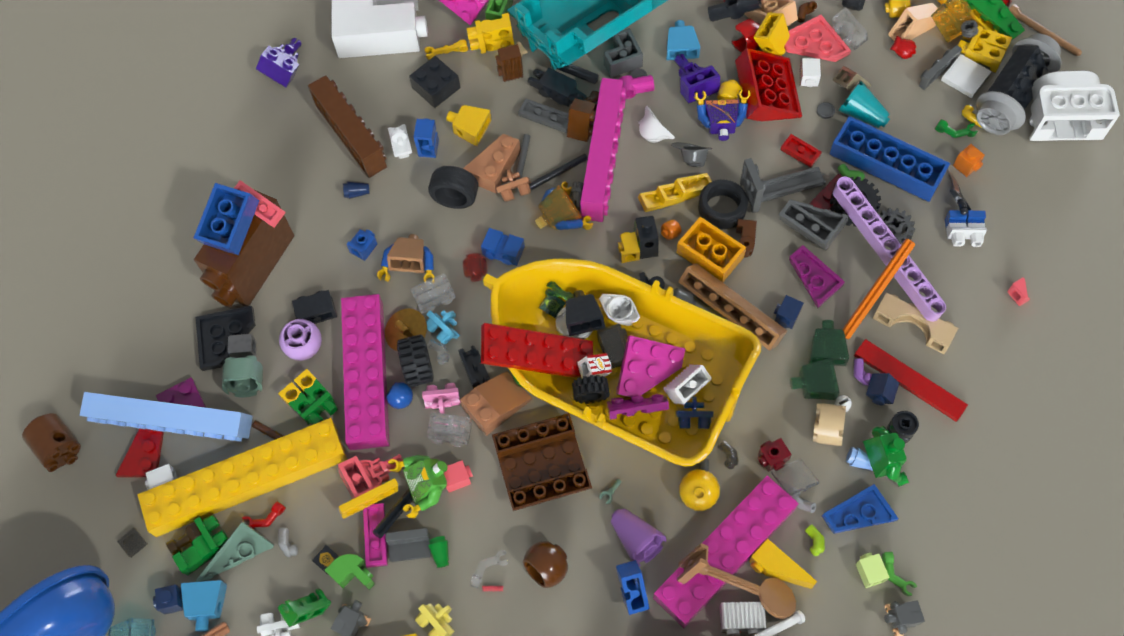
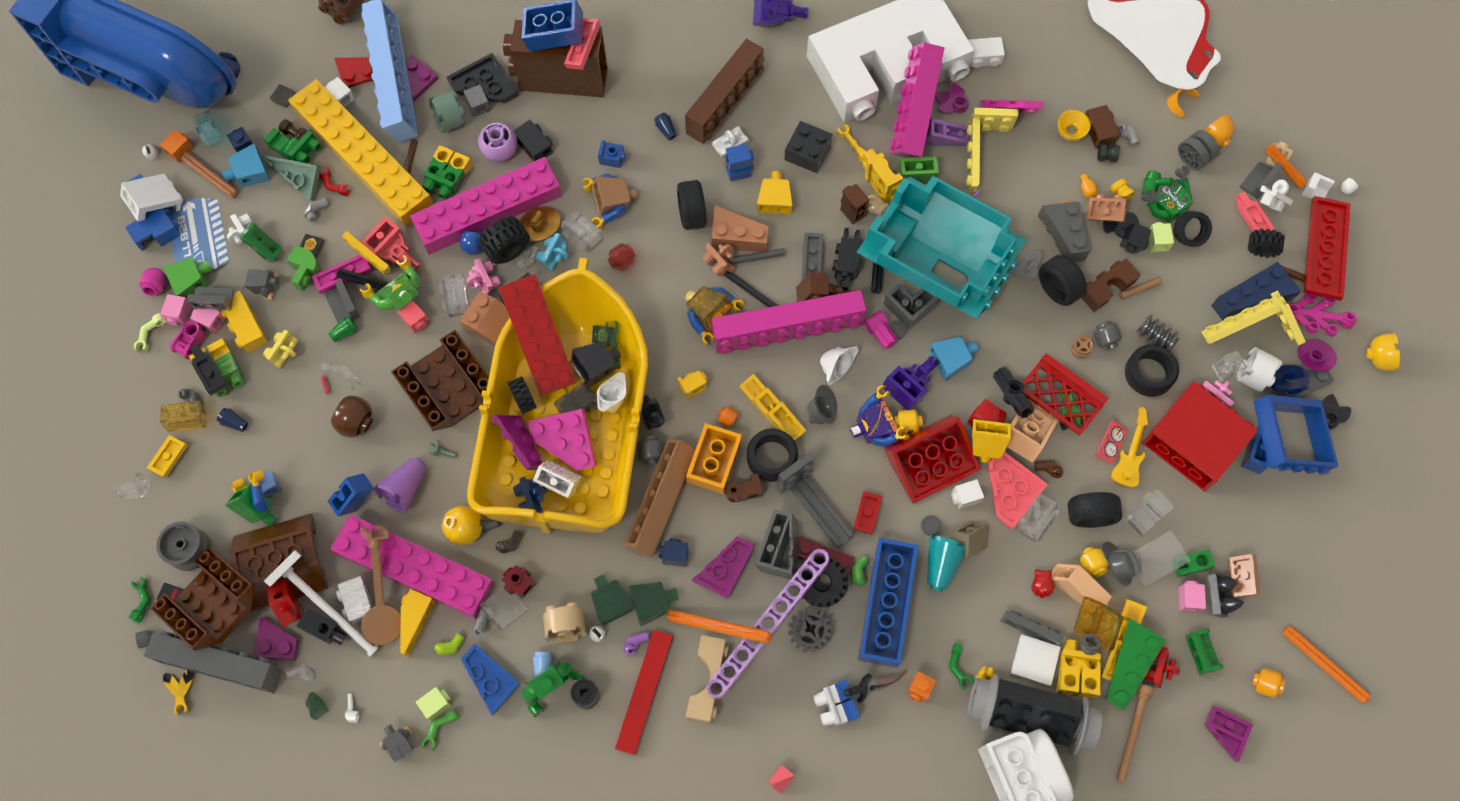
camera: 65 degrees right, 5 degrees up
(502, 247) = (652, 273): blue brick -> none
(595, 365) = (543, 391): white brick -> none
(646, 232) = (709, 394): black torso -> none
(882, 388) = (619, 664): dark blue brick -> none

